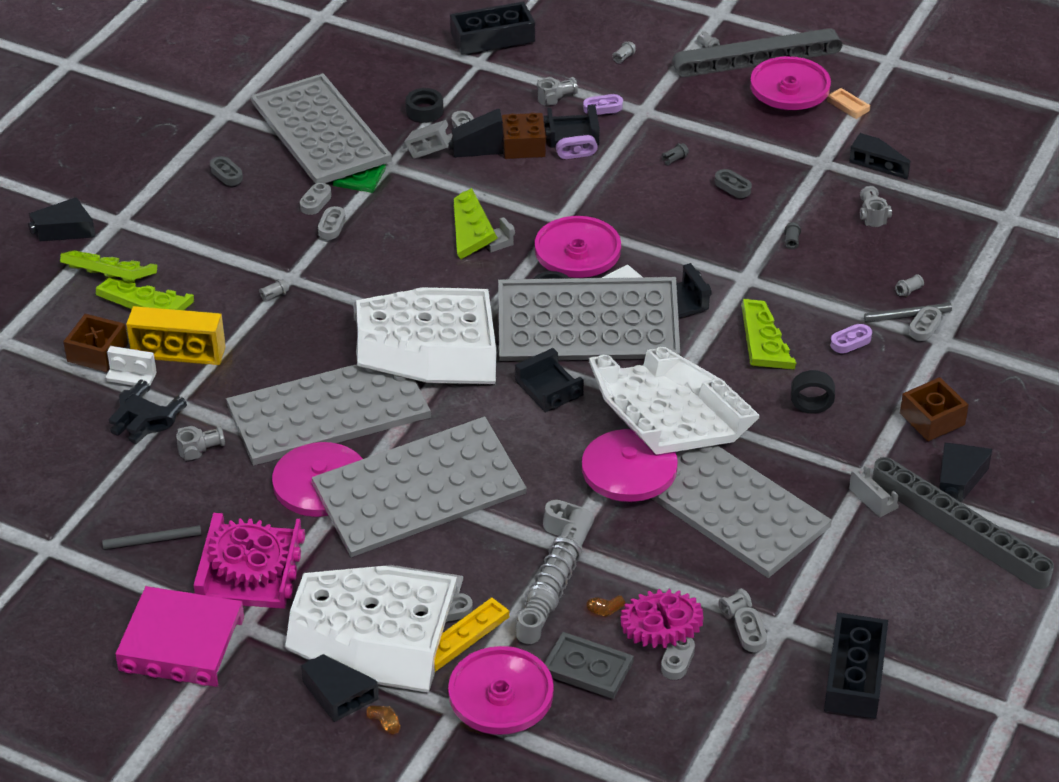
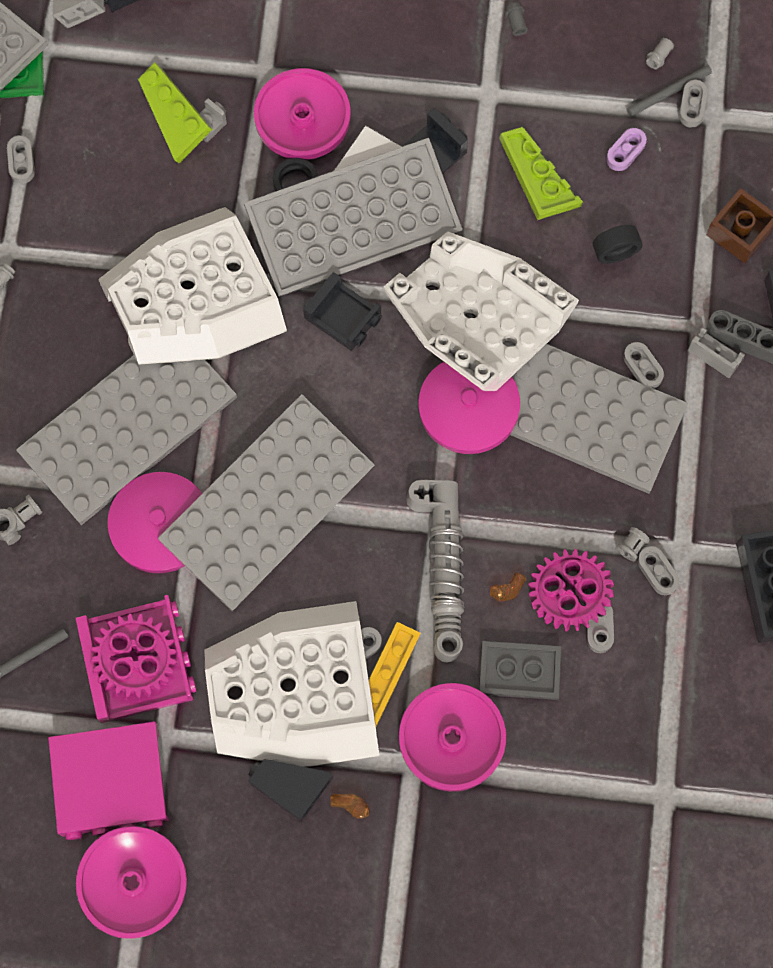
camera: 20 degrees left, 30 degrees up
(160, 709) = (131, 882): none -> dark pink dish
(801, 483) = (645, 365): none -> light grey plate

